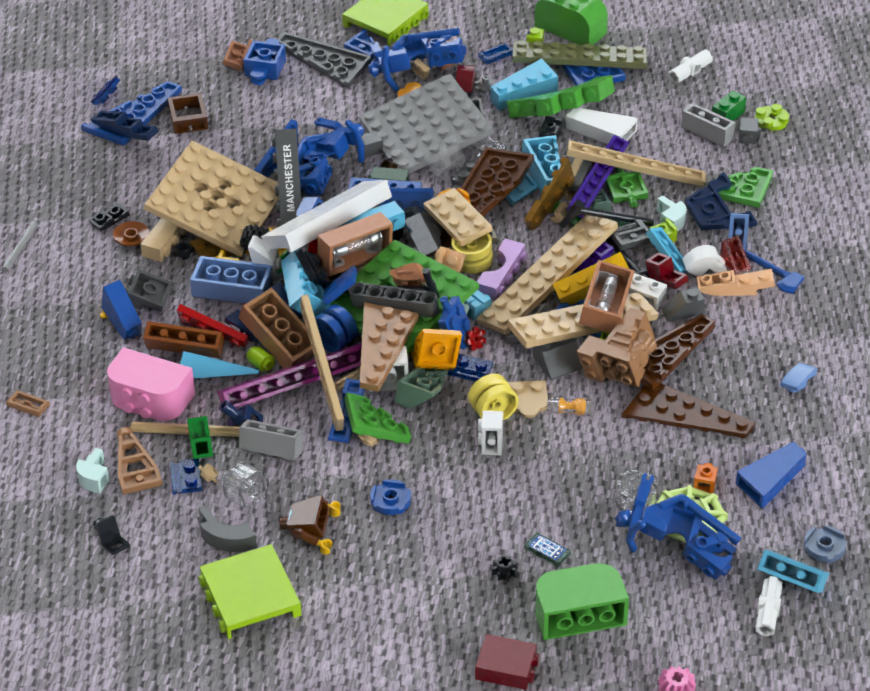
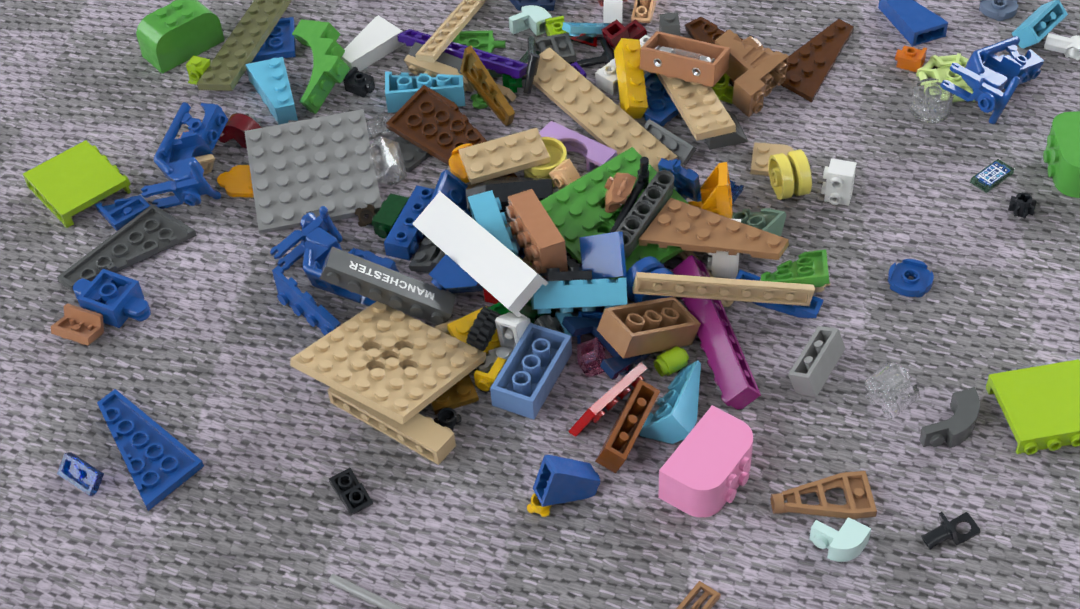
camera: 75 degrees left, 5 degrees up
(120, 124) = (174, 456): dark blue slope -> none
(130, 233) = (398, 459): dark orange dish -> none
(148, 290) = (518, 458): dark grey plate -> none
(171, 428) = (775, 443): tan axle -> none
(182, 123) = (176, 403): reddish brown window -> none
(185, 476) = (853, 452): clear blue plate -> none
(200, 437) = (807, 429): green brick -> none
(209, 472) = (855, 427): tan plate -> none
(240, 415) = (769, 390): dark blue bracket -> none
(309, 520) = (947, 342): reddish brown torso -> none
(495, 53) = (195, 101): clear blue tile -> none
(576, 406) = (799, 123): clear piece -> none

